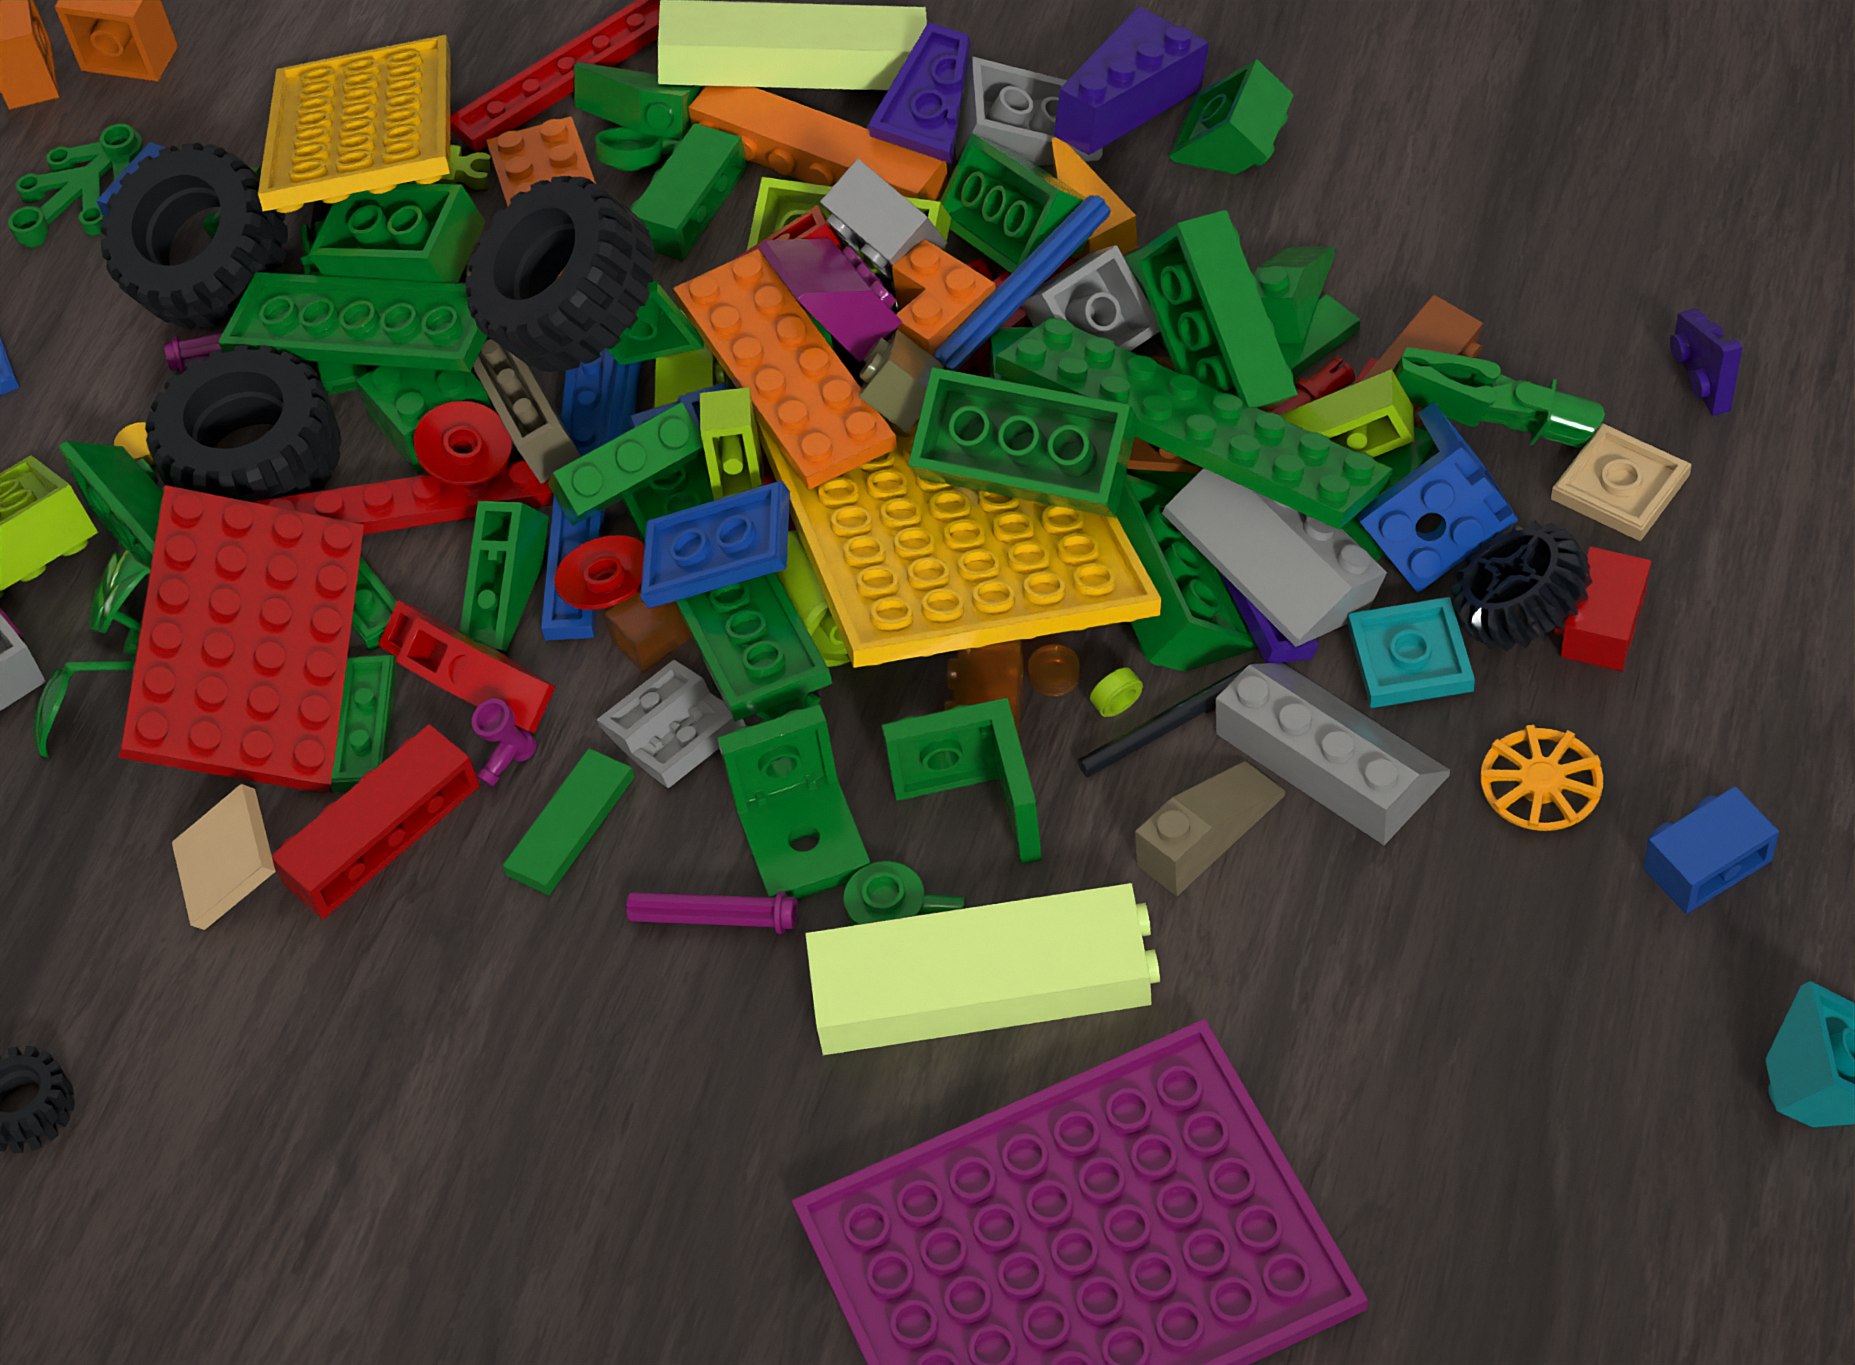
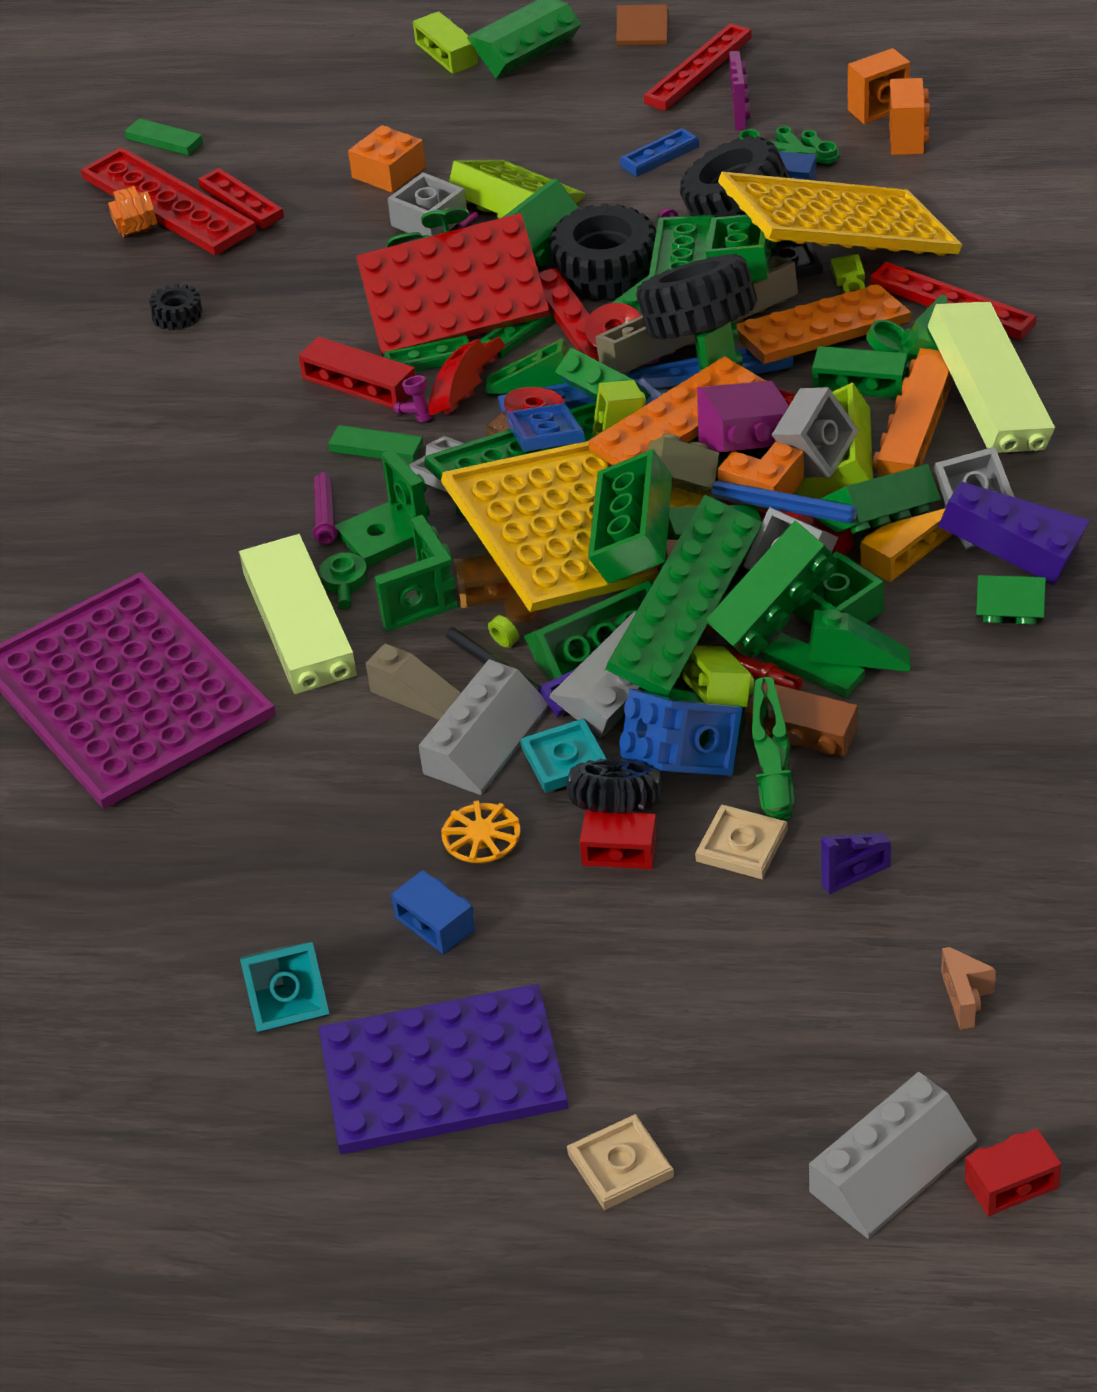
camera: 75 degrees right, 10 degrees down
(223, 857) = (322, 325): tan tile -> none
(926, 95) = (951, 437): dark purple wing -> none

